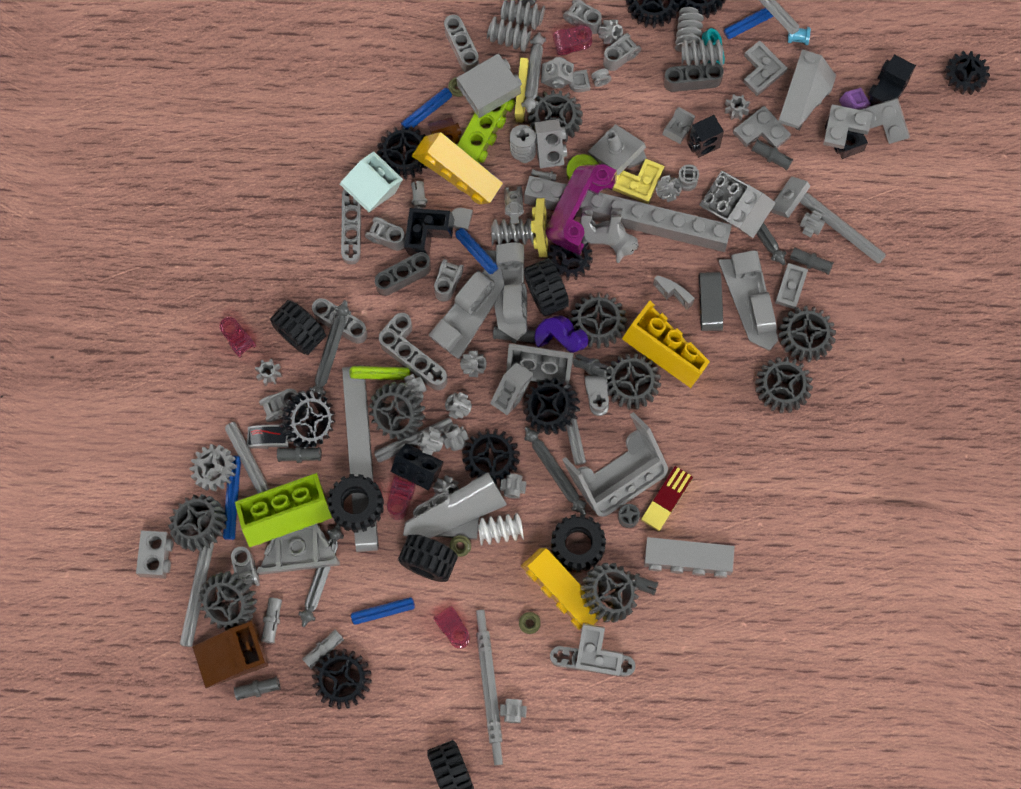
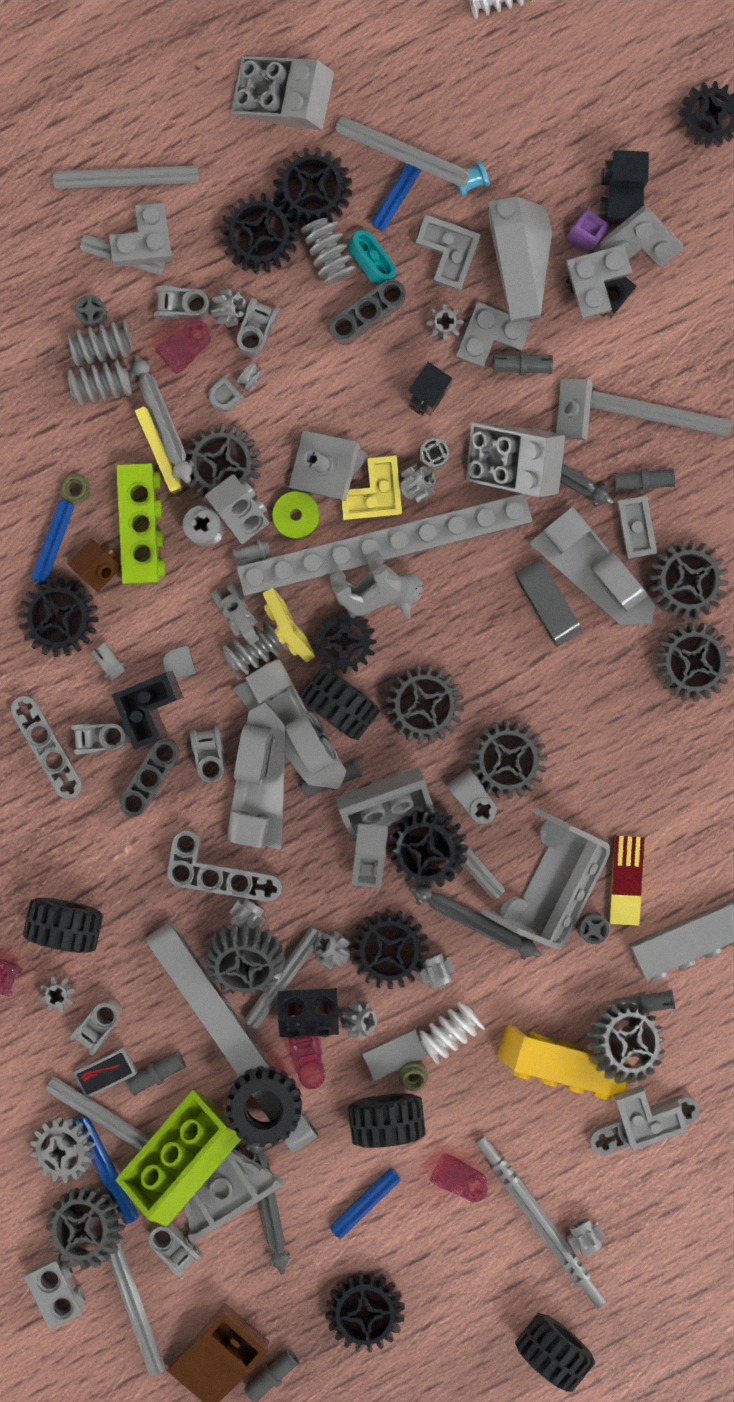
camera: 30 degrees left, 15 degrees up
(229, 588) = (178, 1291): dark grey gear -> none
(271, 620) = (241, 1288): light grey pin -> none
(301, 403) = (131, 1033): black gear -> none
(323, 648) = (321, 1287): light grey pin -> none
(330, 348) = (119, 928): dark grey wheel -> none
(351, 321) = (92, 881): light grey beam -> none
(369, 372) = (195, 923): lime axle -> none
(371, 182) = (42, 684): light aqua slope -> none
(430, 441) = (306, 974): light grey gear -> none
(456, 509) = (375, 1050): light grey panel -> none
(457, 168) = (140, 607): yellow wedge -> none
(458, 405) = (313, 908): light grey gear -> none
(459, 35) = (32, 425): light grey beam -> none
(473, 363) = (302, 845): light grey gear -> none
(476, 251) = (224, 698): blue axle -> none
(489, 85) = (118, 474): light grey brick -> none
(529, 616) = (546, 1130): olive plate -> none
(557, 73) = (192, 404): light grey brick -> none
(562, 227) = (313, 545): magenta windscreen -> none
(563, 331) = (392, 748): dark purple animal -> none
(581, 525) = (566, 1019): black tyre -> none
(593, 366) = (451, 769): dark grey pin -> none
(665, 346) = (524, 694): yellow wedge -> none
(669, 288) = (487, 615): light grey slope -> none
(679, 125) = (385, 390): light grey bracket -> none
(702, 52) = (365, 279): light grey piece -> none
(812, 223) = (621, 431): light grey gear -> none

